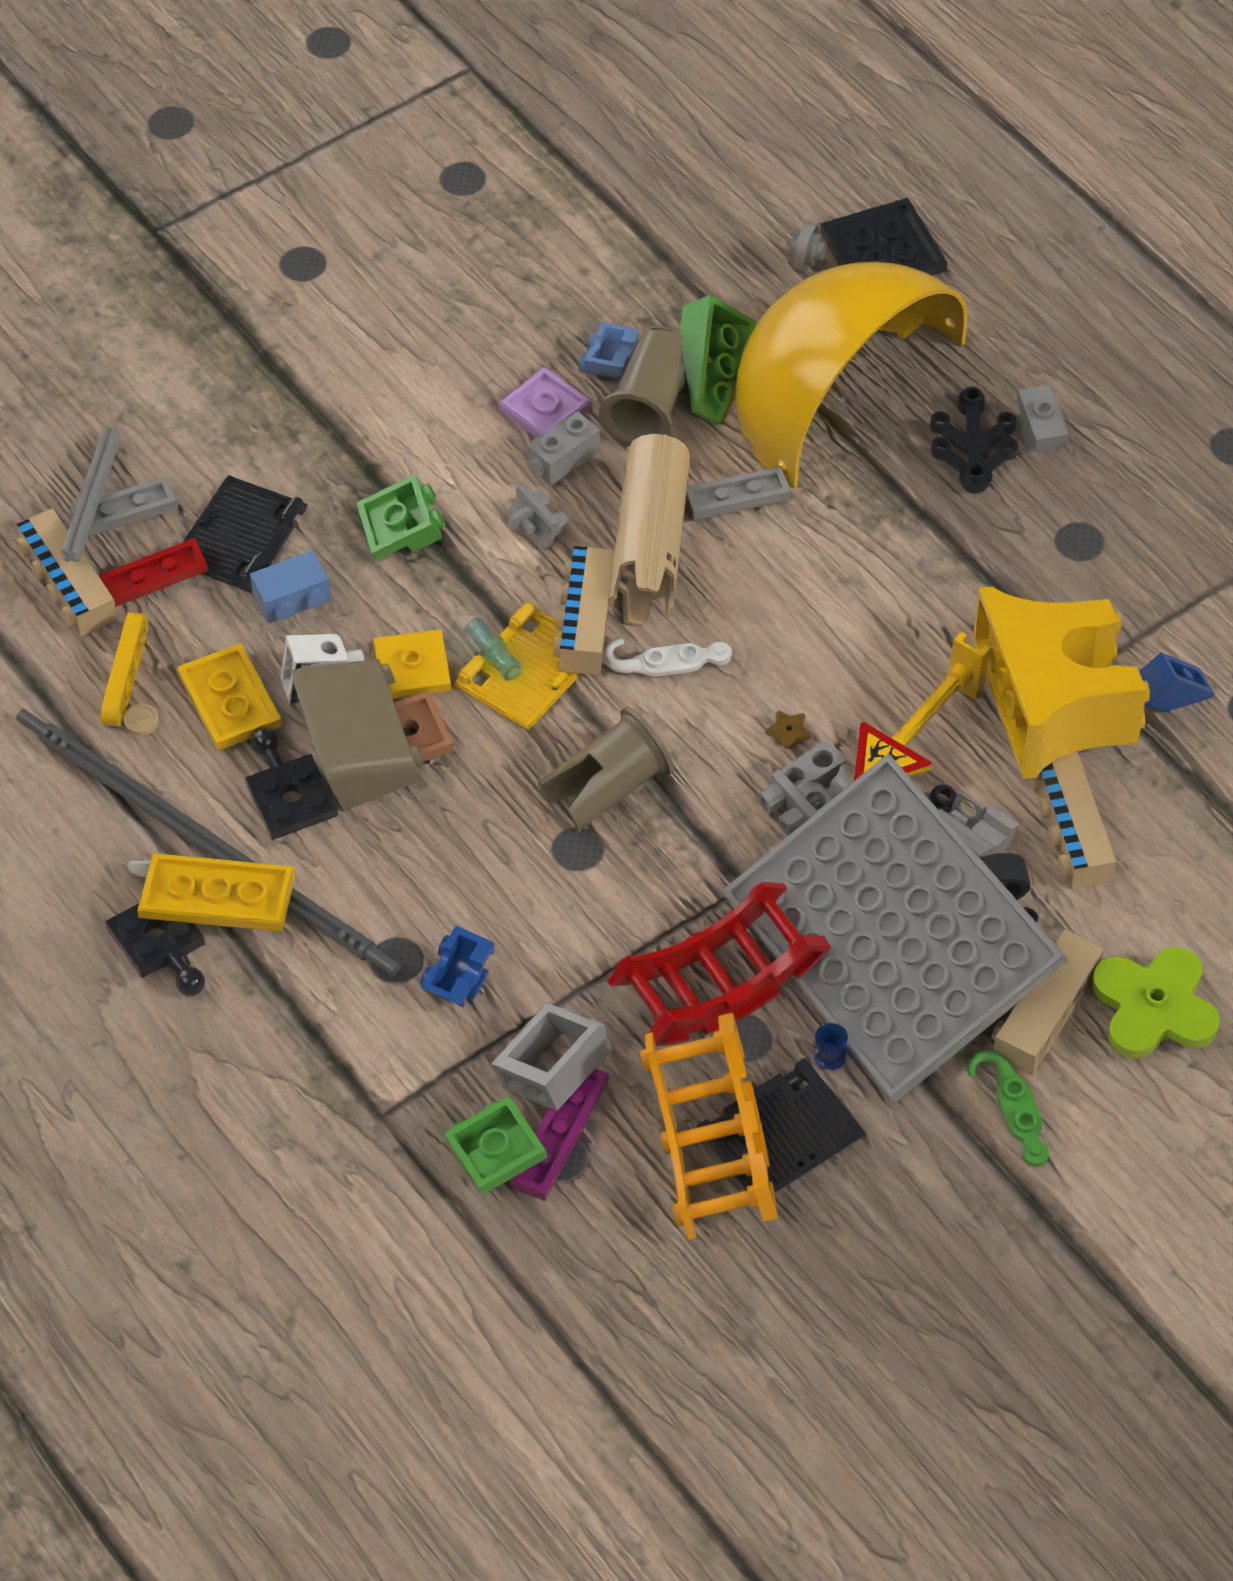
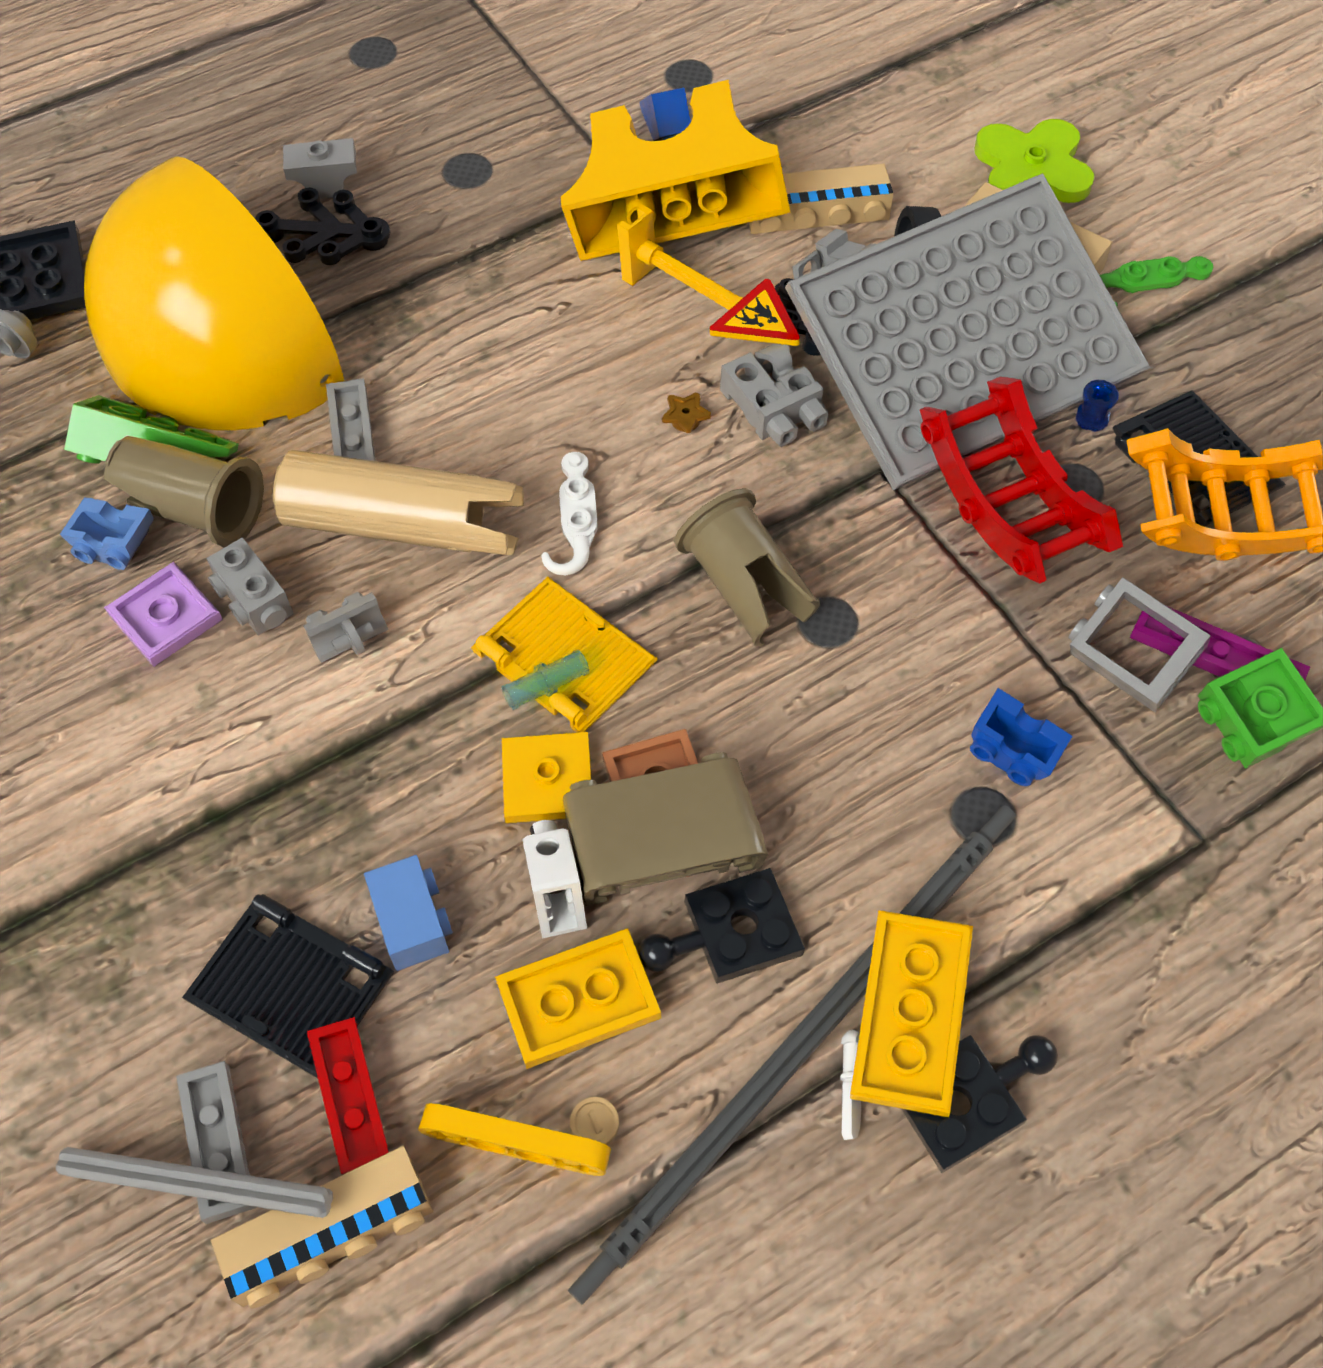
camera: 85 degrees left, 5 degrees up
(401, 517) = (317, 774): bright green plate -> none
(586, 610) = (503, 578): tan brick -> none

